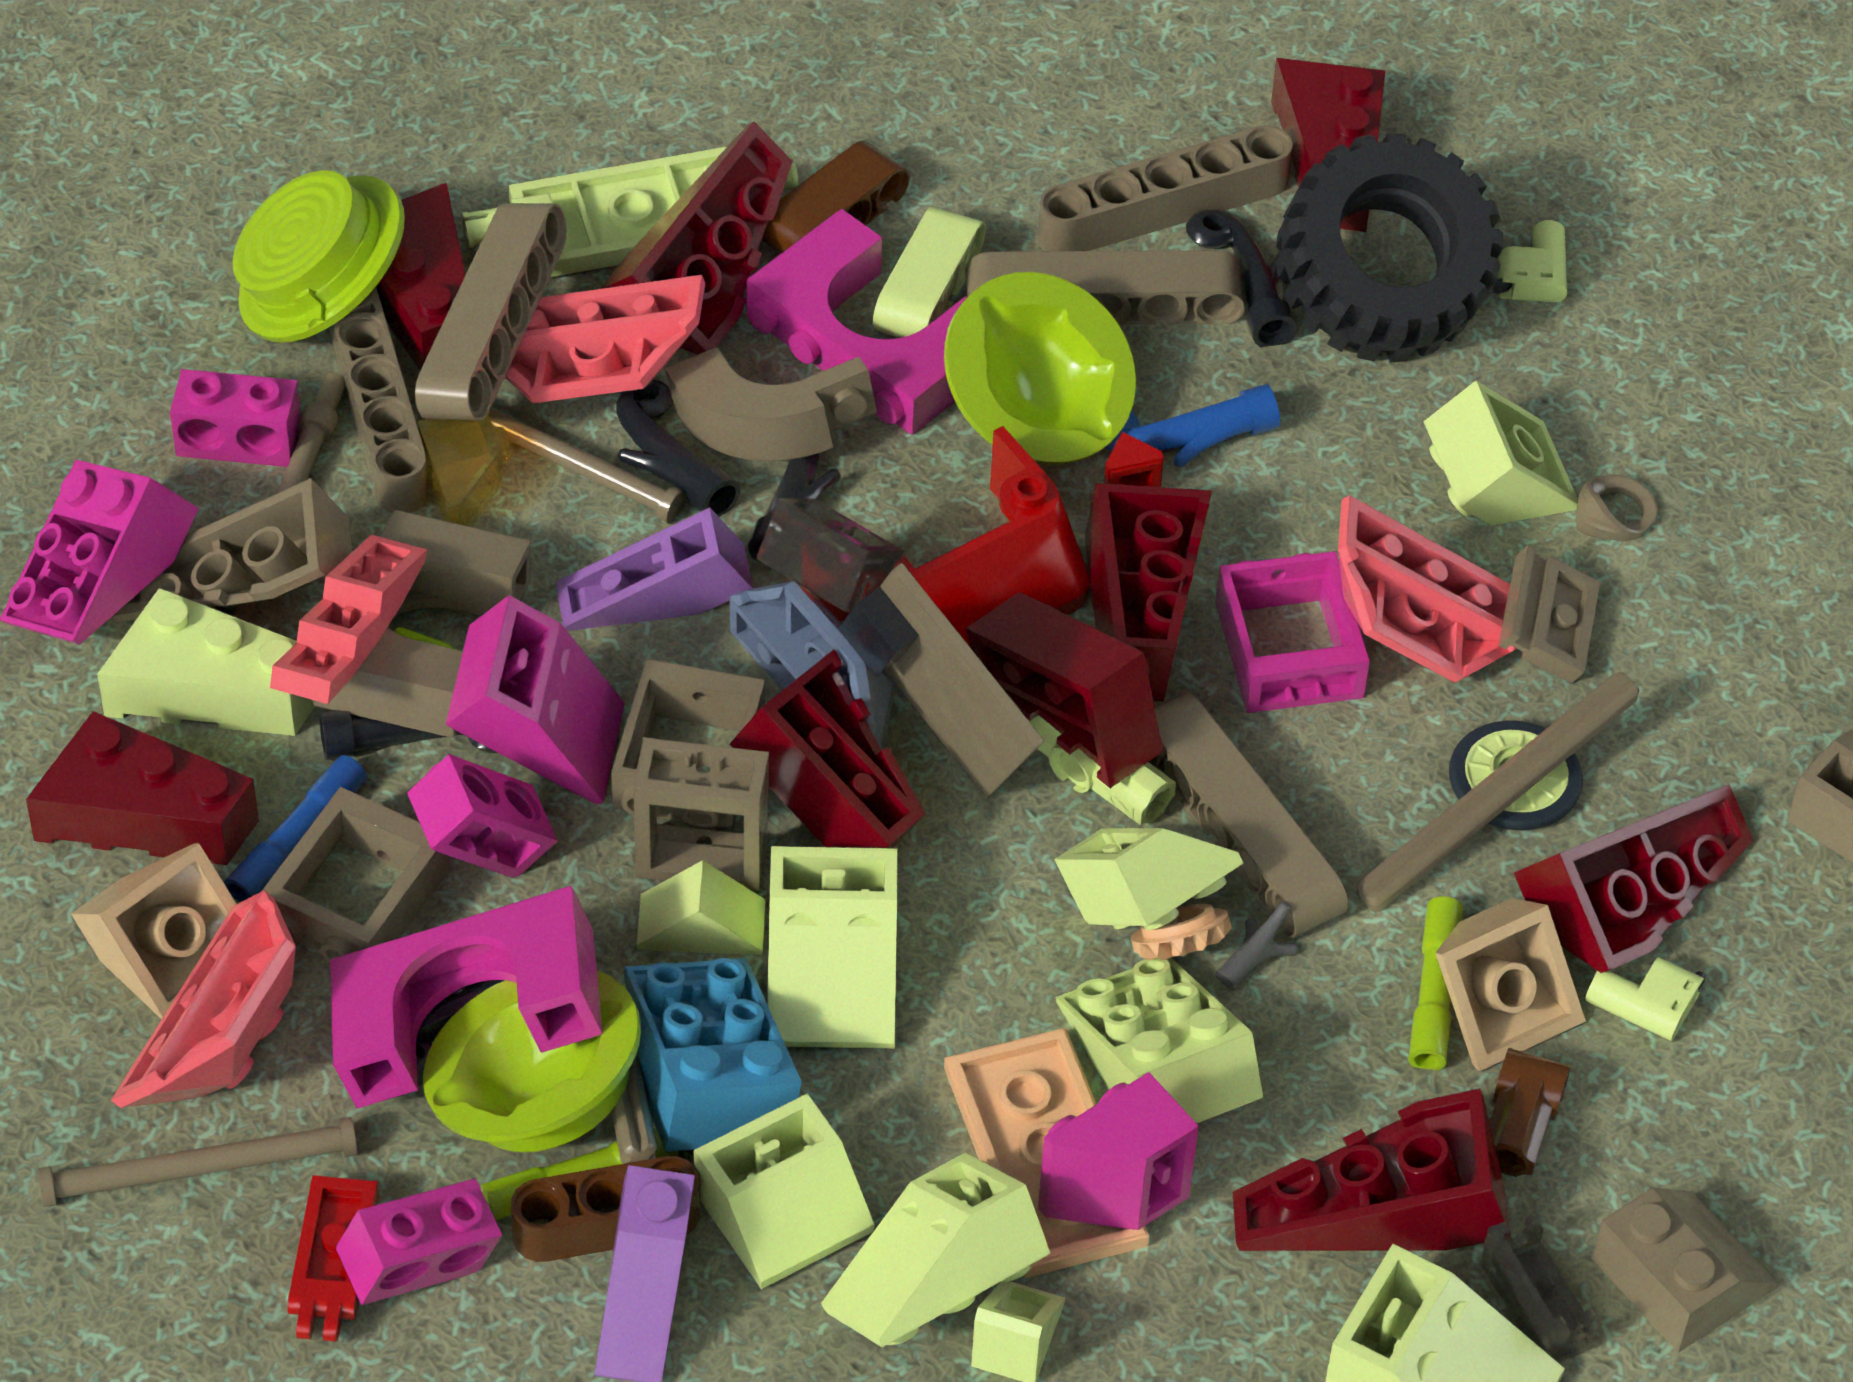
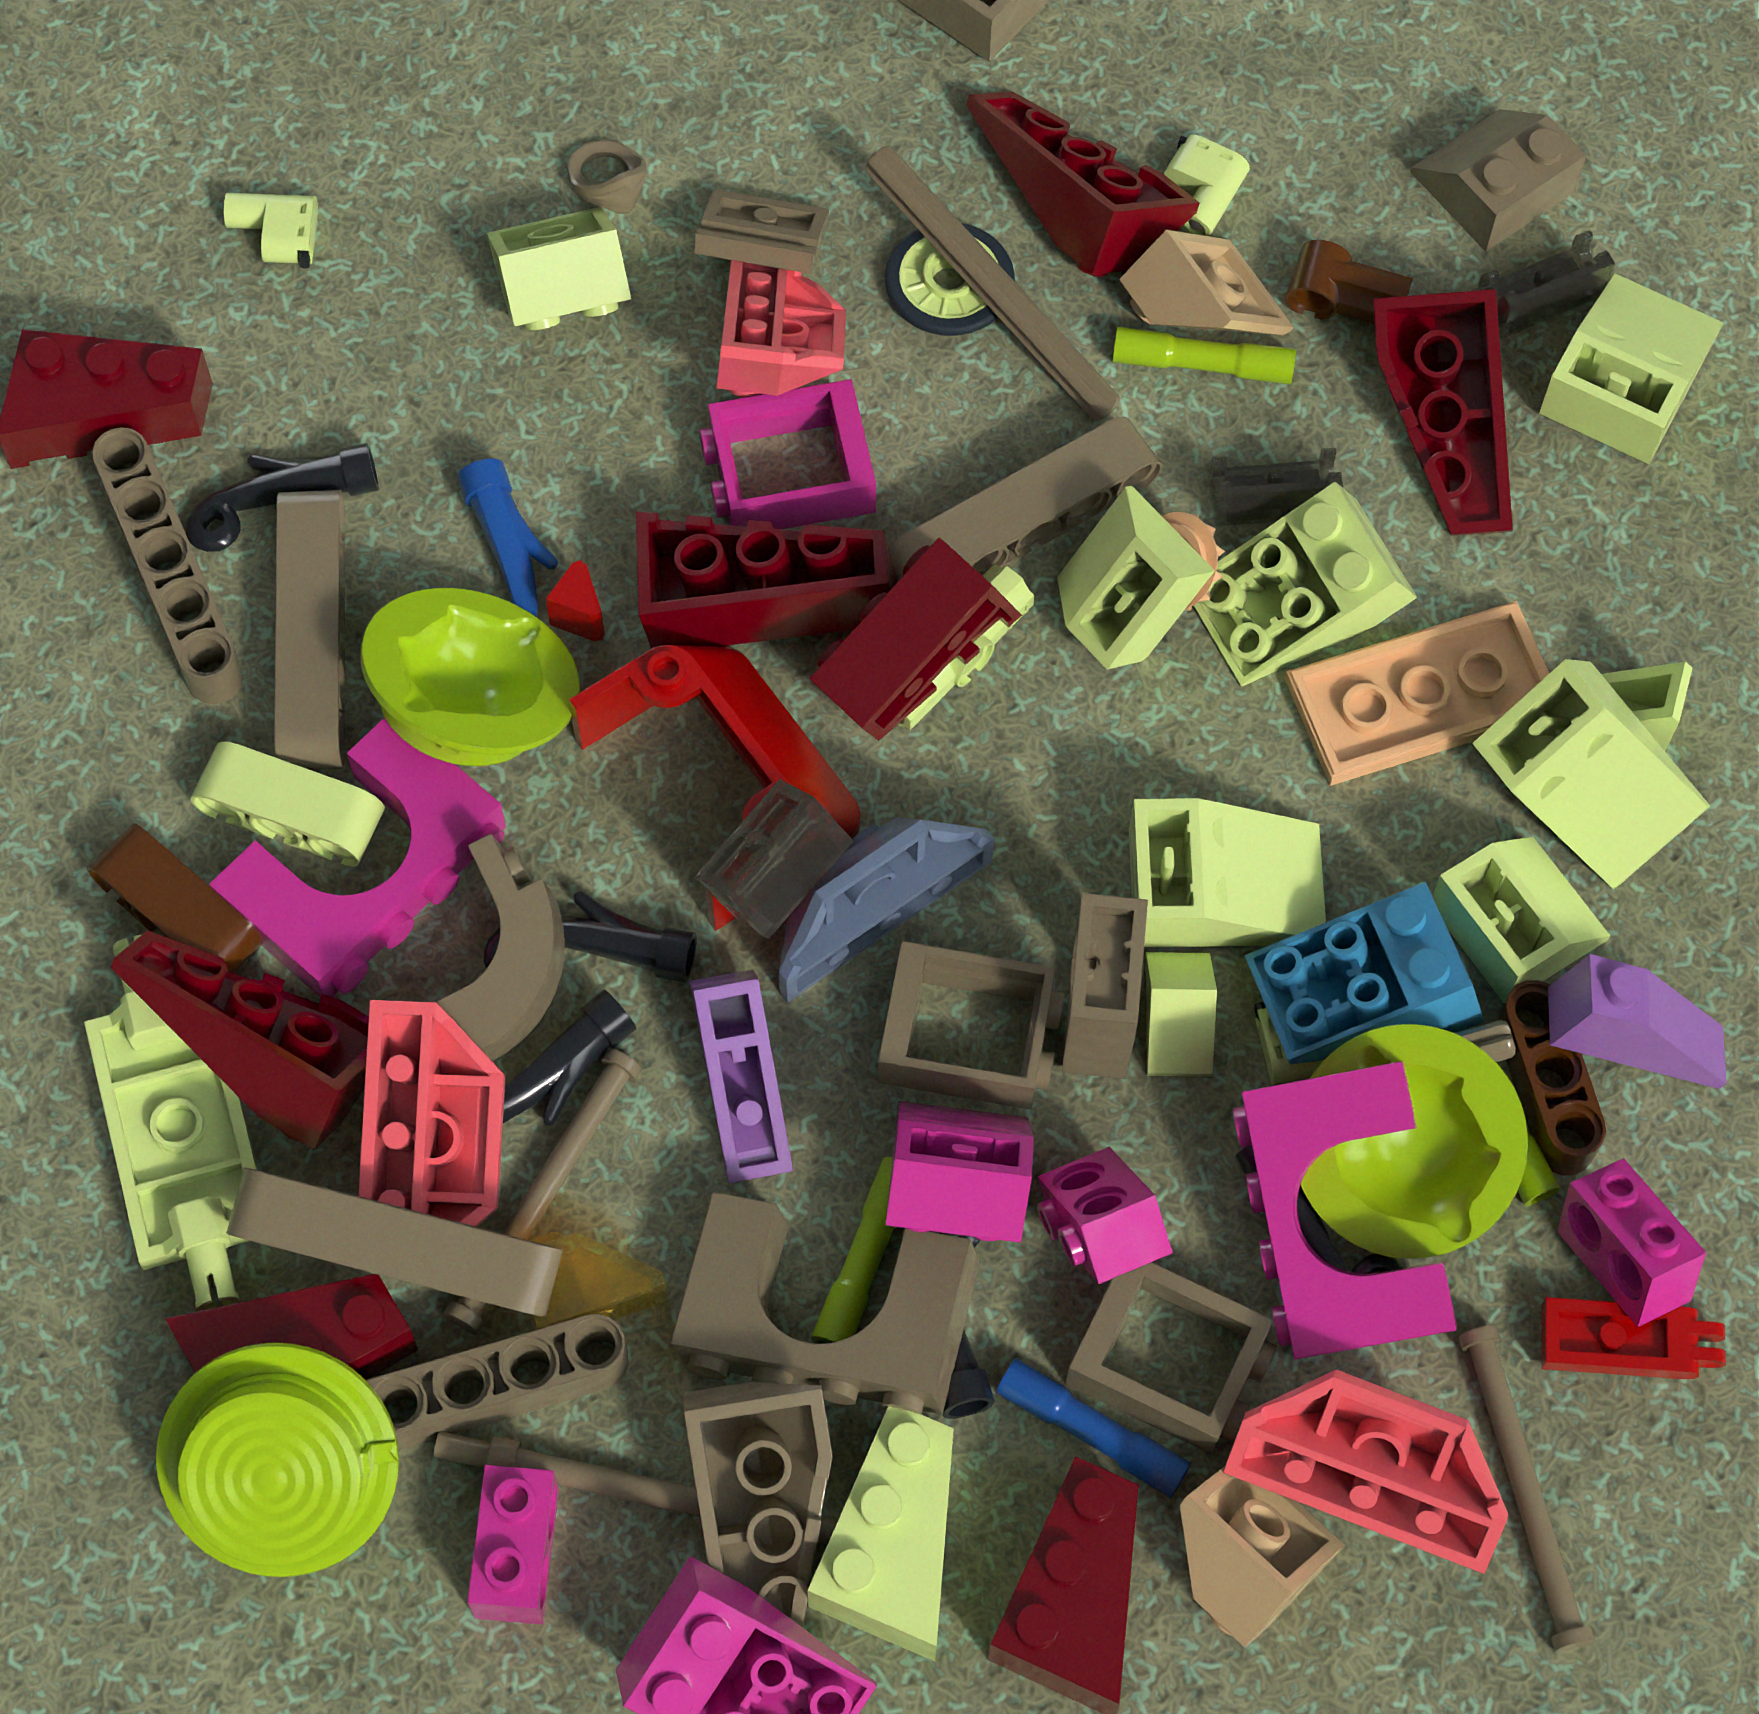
camera: 90 degrees left, 15 degrees up
(349, 620) = (882, 1353): coral slope -> none
(830, 763) = (1016, 875): dark red wedge -> none
(942, 678) = (958, 739): dark tan piece -> none
(1119, 1158) = (1482, 596): dark pink slope -> none
(1256, 948) = (1174, 498): dark grey bar -> none
(1280, 1025) = (1267, 490): none -> clear smoke hinge
(1430, 194) = (326, 274): black tyre -> none

